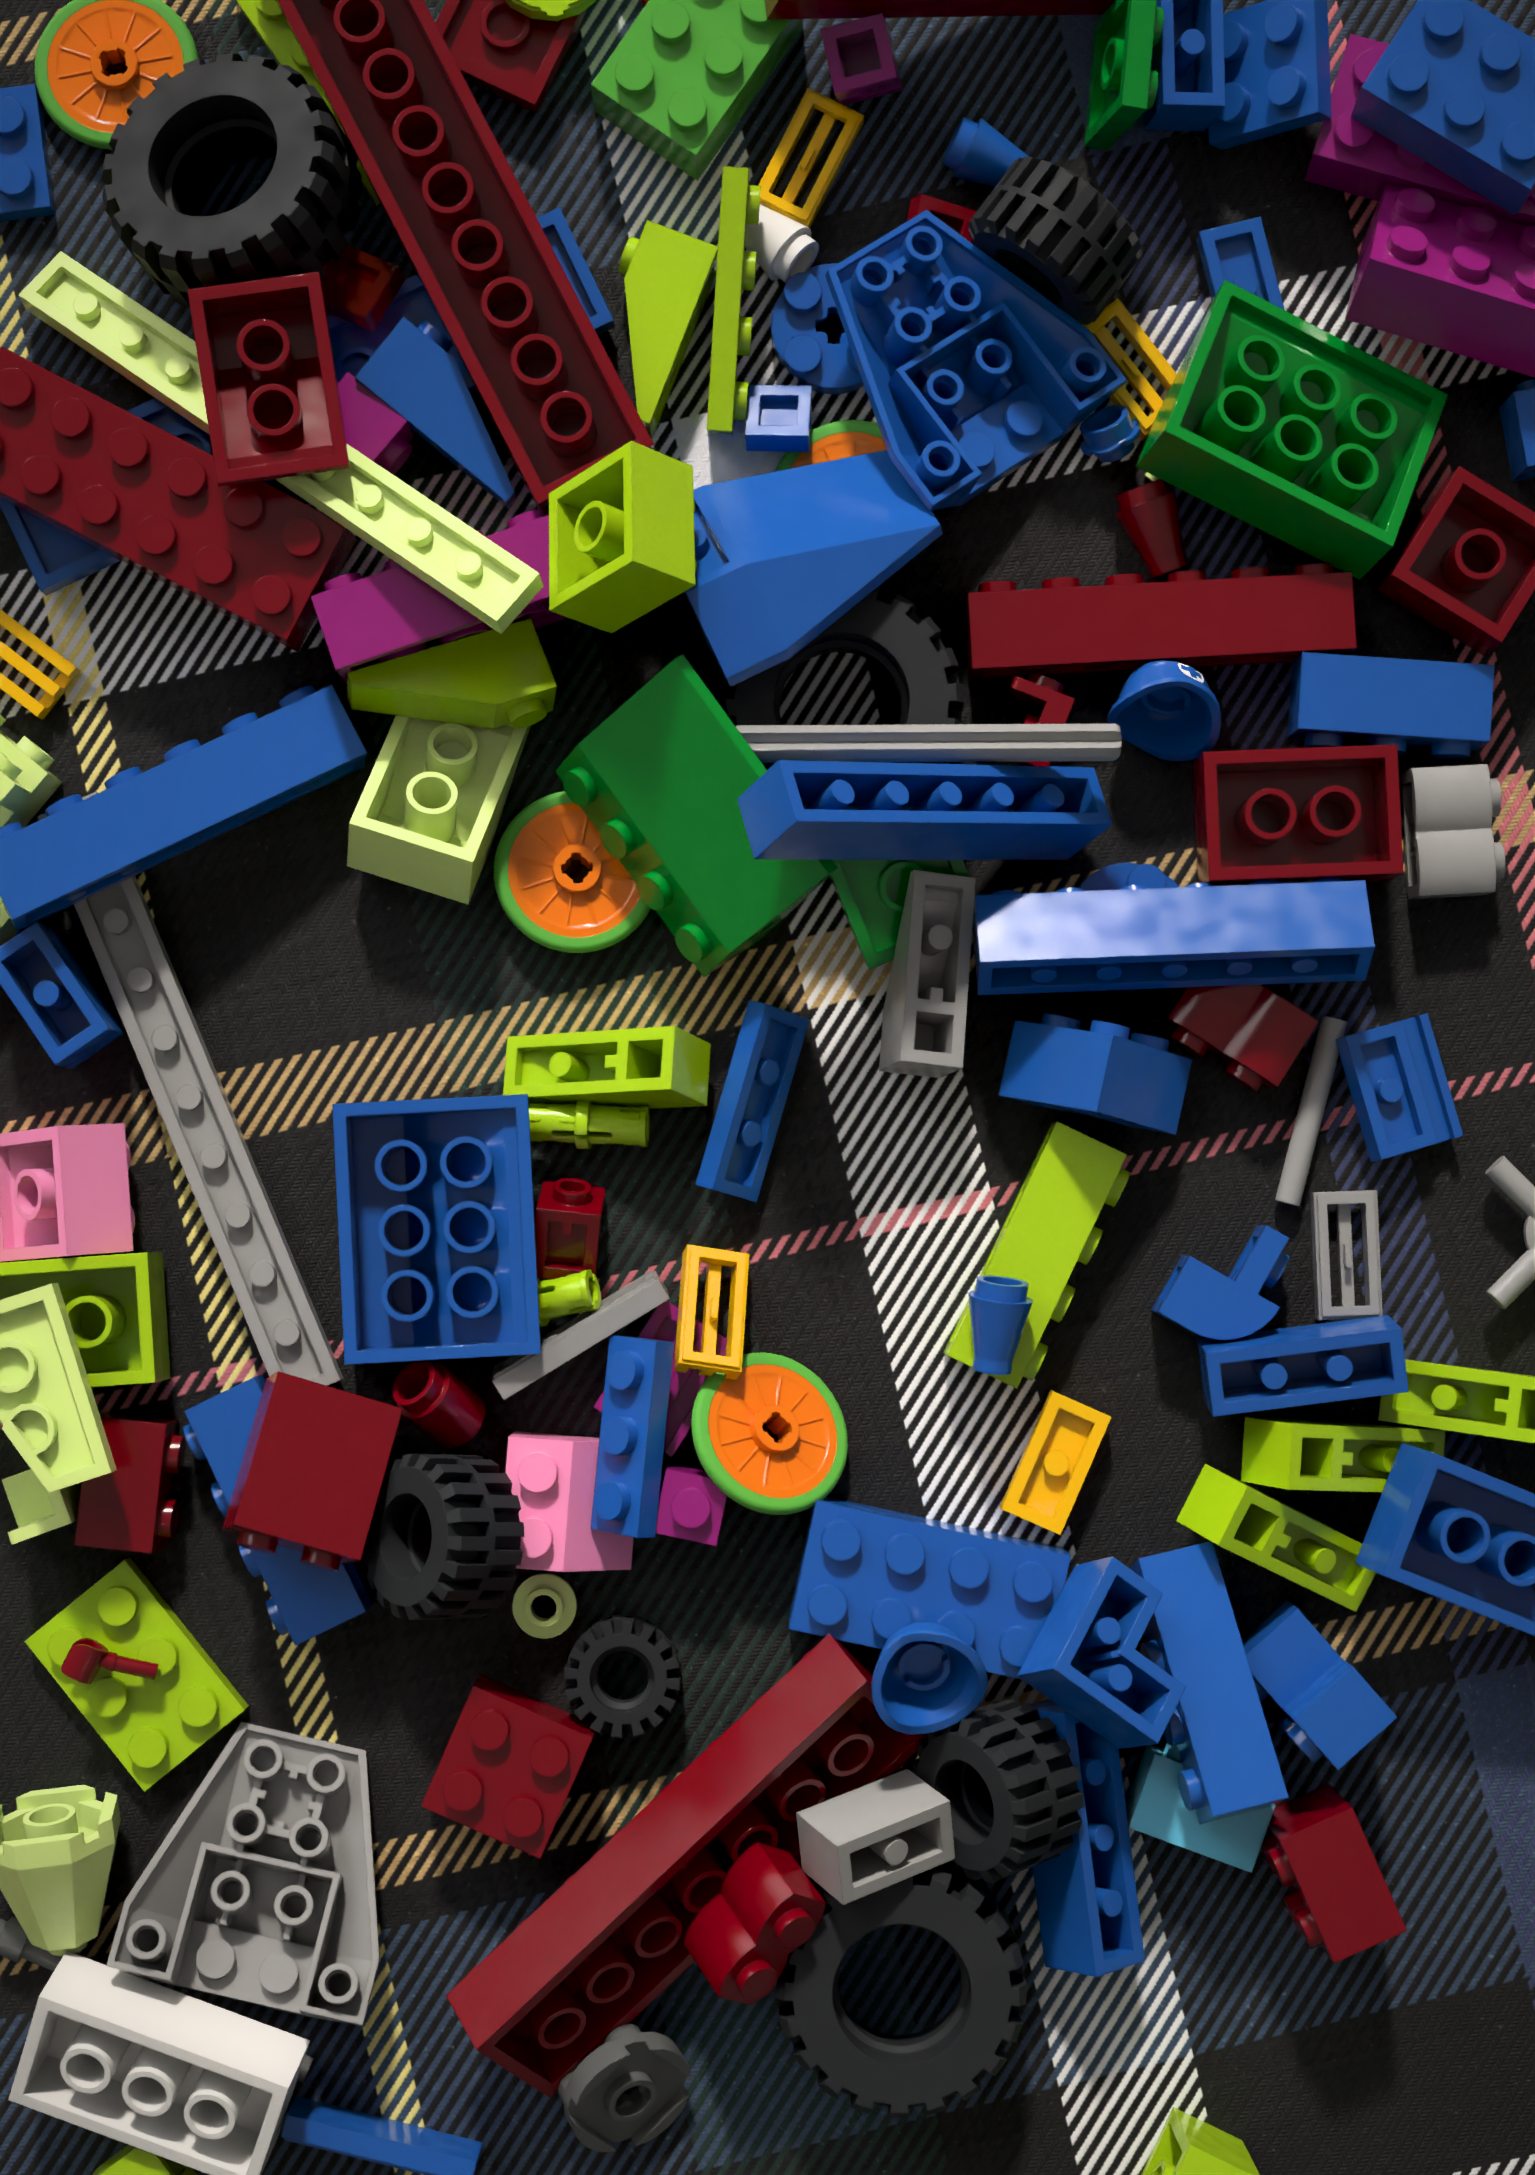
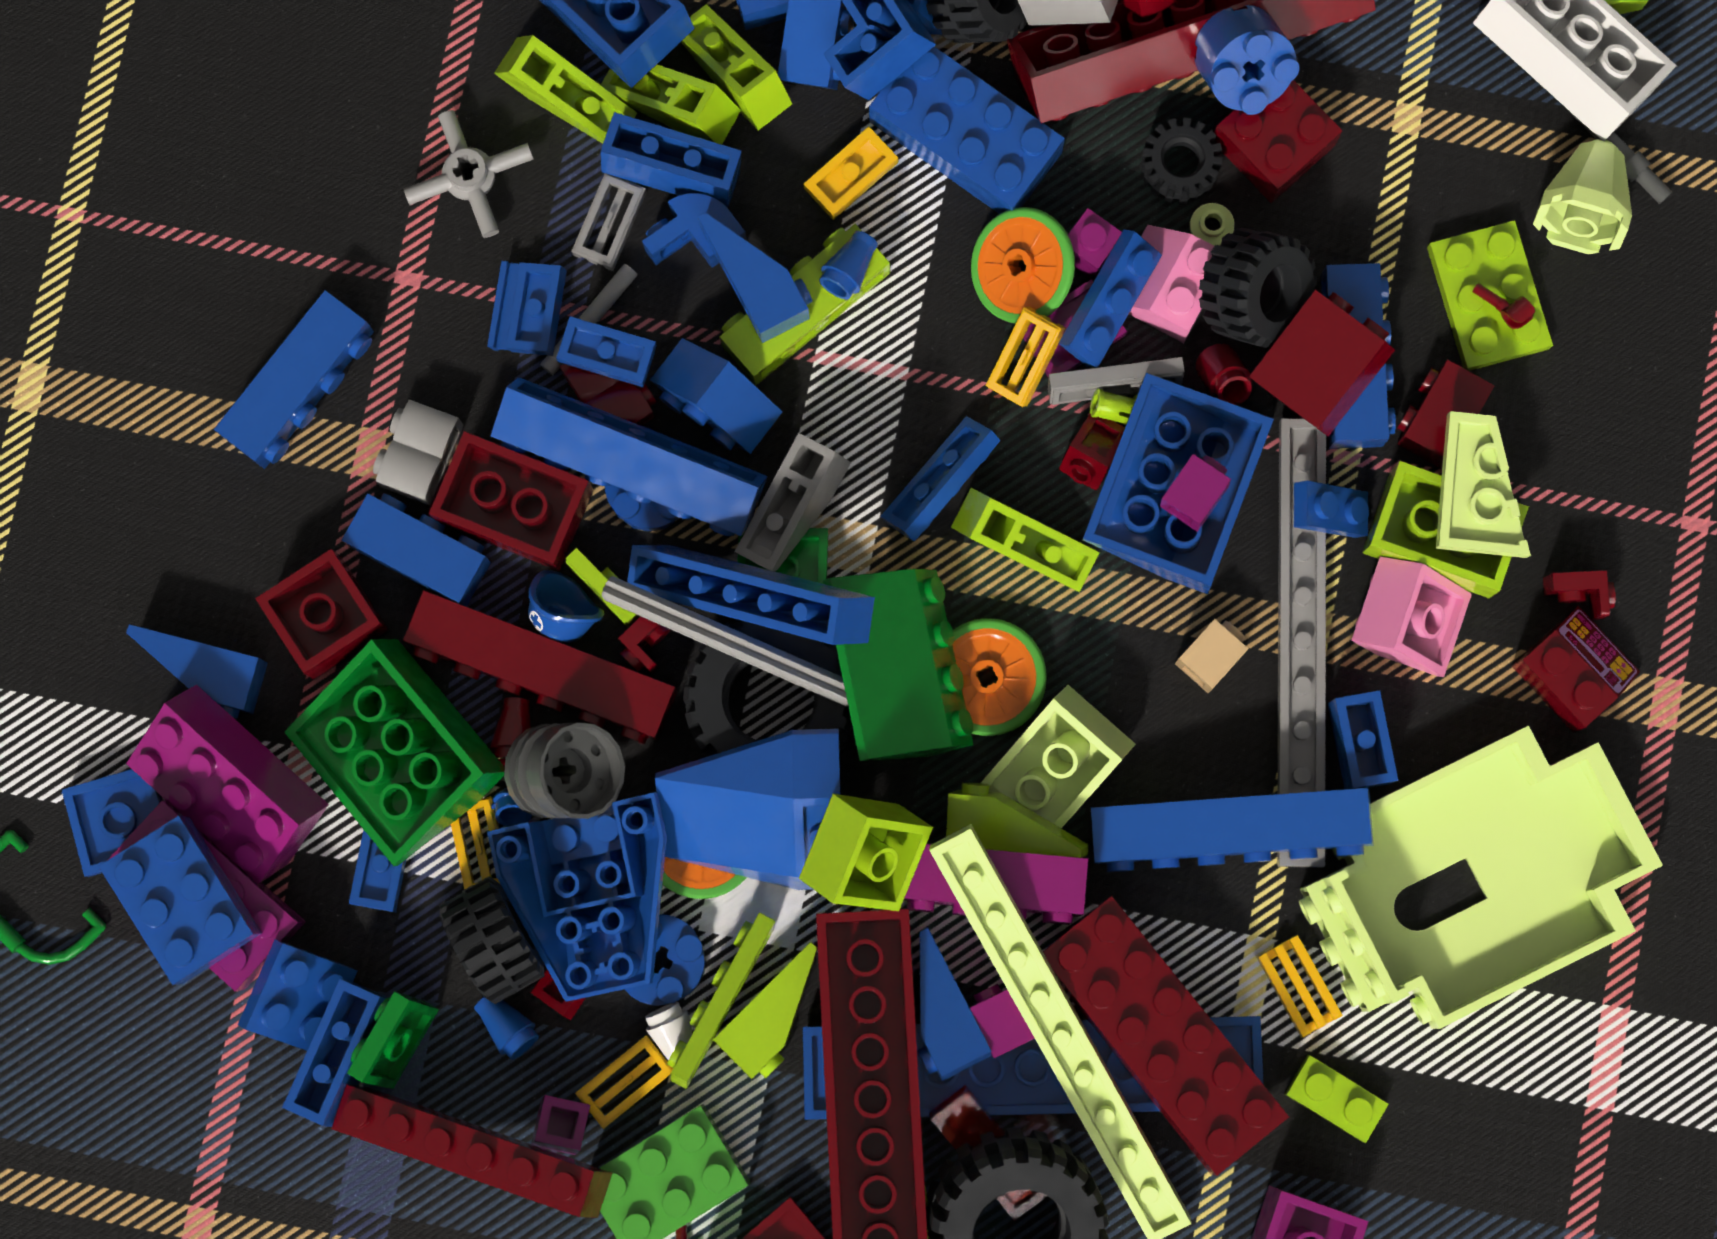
camera: 155 degrees left, 5 degrees down
(37, 1509) = (1512, 422): yellowish green panel -> none
(222, 1284) = (1330, 509): none -> blue plate
(264, 1883) = (1459, 131): light grey wedge -> none
(269, 378) = (1049, 1064): dark red slope -> none
(297, 1027) = (1212, 654): none -> tan brick
(401, 1216) = (1196, 491): none -> magenta brick
(589, 1124) = (1050, 511): lime pin -> none
(589, 1840) = (1245, 58): none -> blue brick
(778, 418) = (723, 912): plate -> none
(927, 1679) = (993, 66): blue helmet -> none
(1062, 493) = (585, 765): none -> dark grey wheel
(1099, 1239) = (761, 284): none -> blue slope
(1143, 769) = (596, 581): none -> lime plate
(1265, 1062) = (606, 351): none -> blue plate

